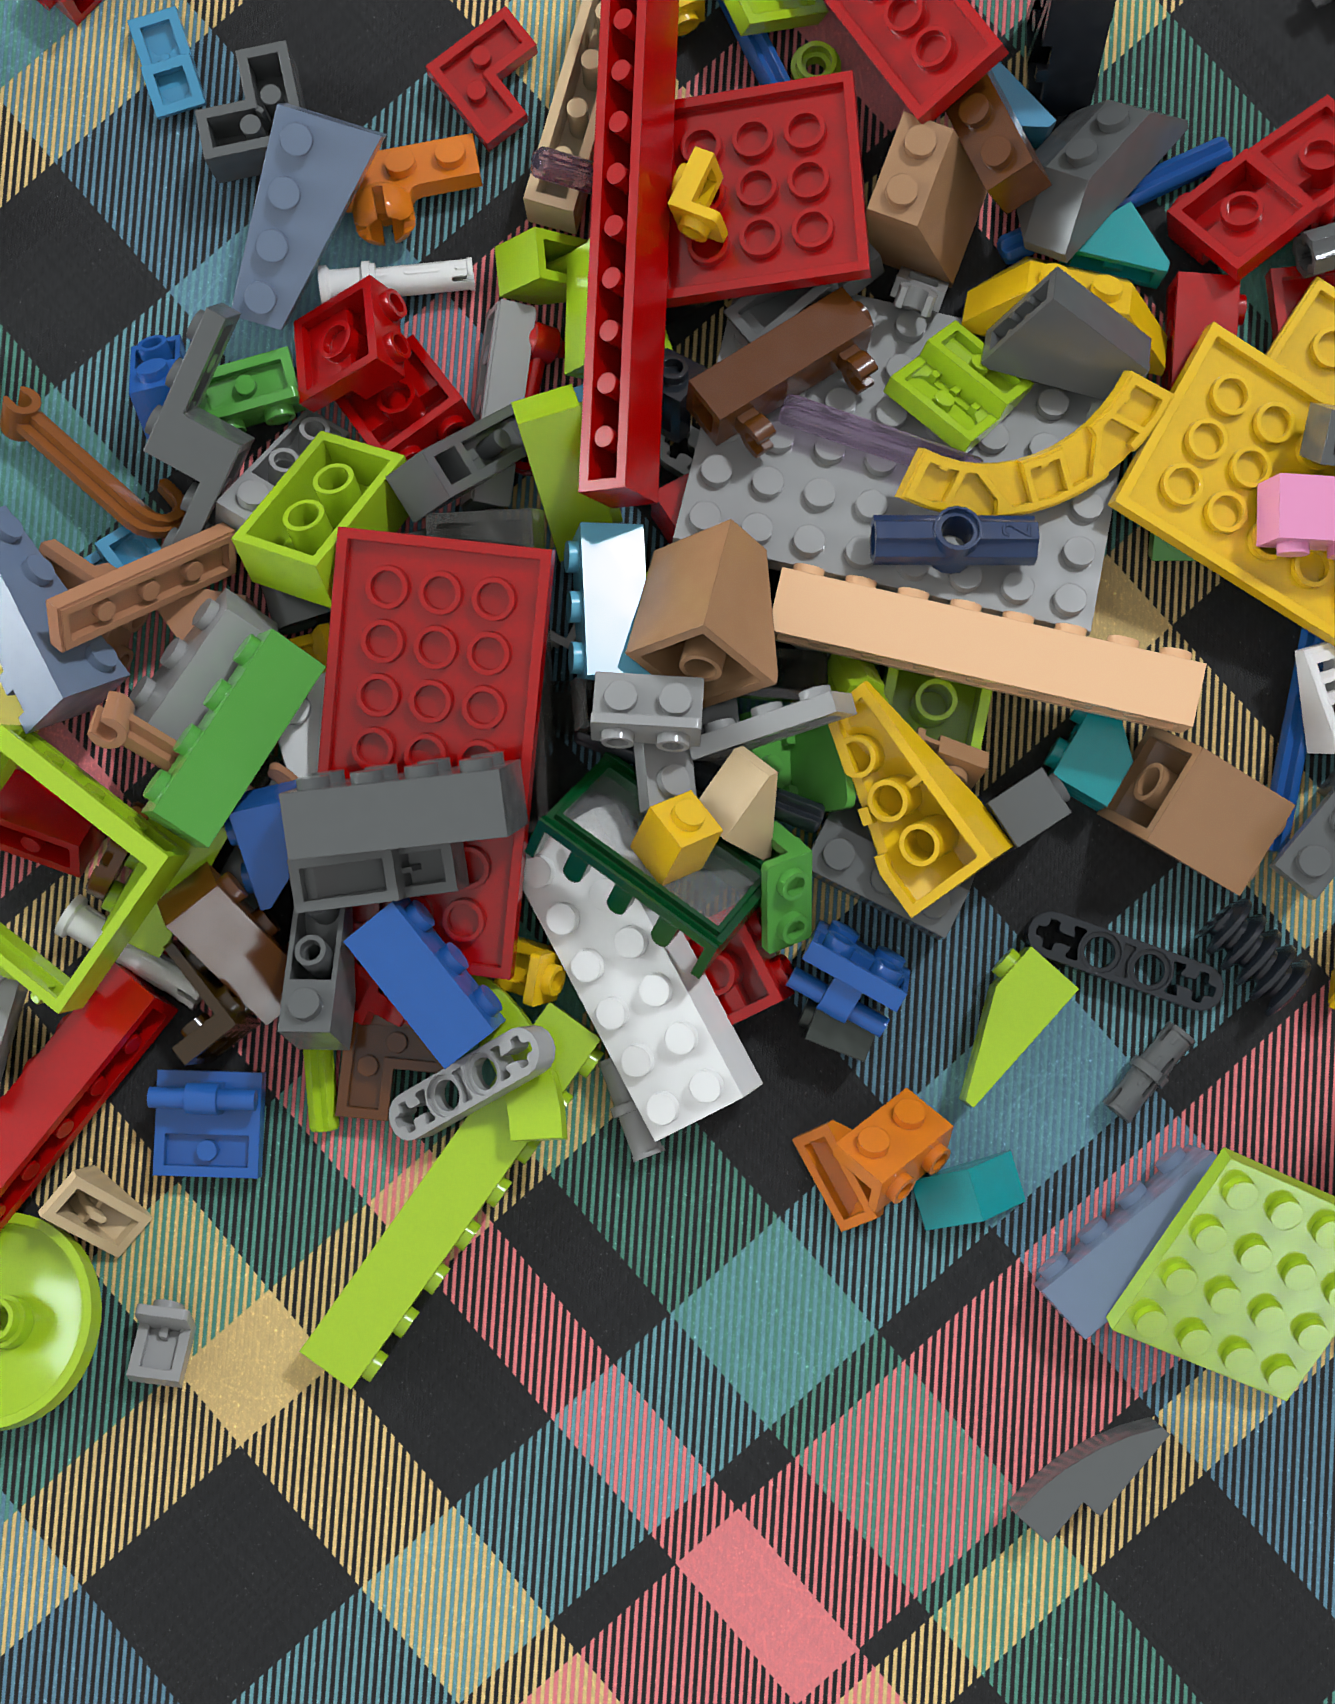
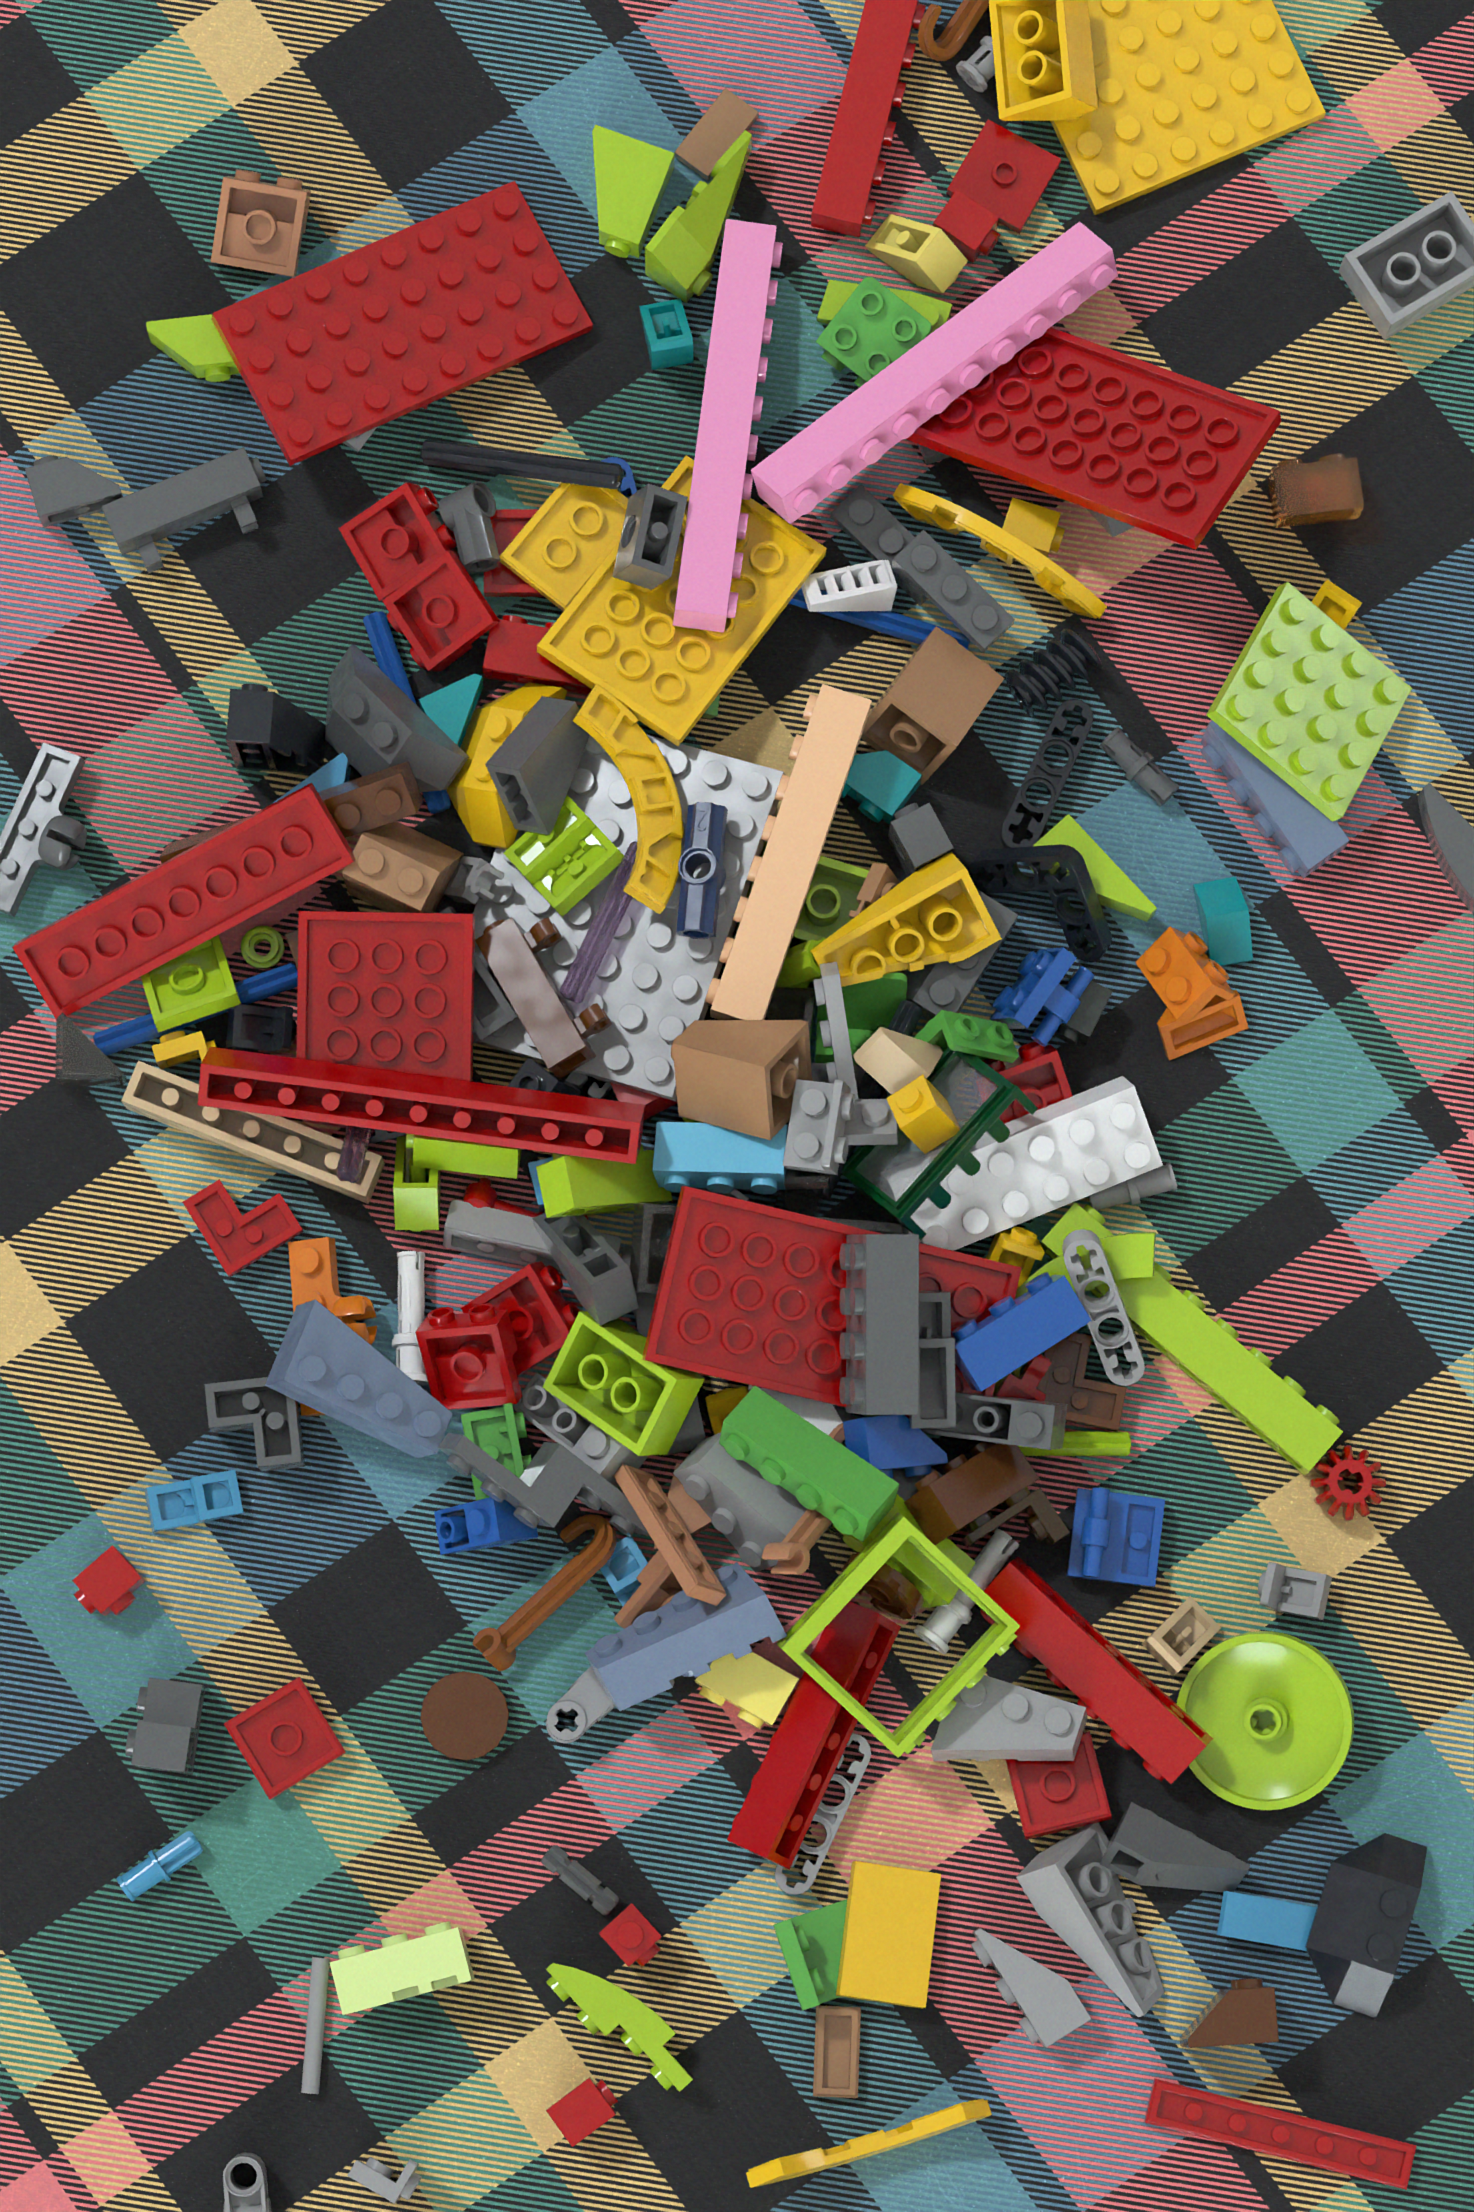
camera: 95 degrees left, 5 degrees down
(282, 1413) = (1349, 1468): none -> red gear
(692, 195) = (385, 1049): yellow bracket -> none
(716, 63) = (260, 1029): none -> black bracket
(937, 1021) = (1059, 885): none -> black beam

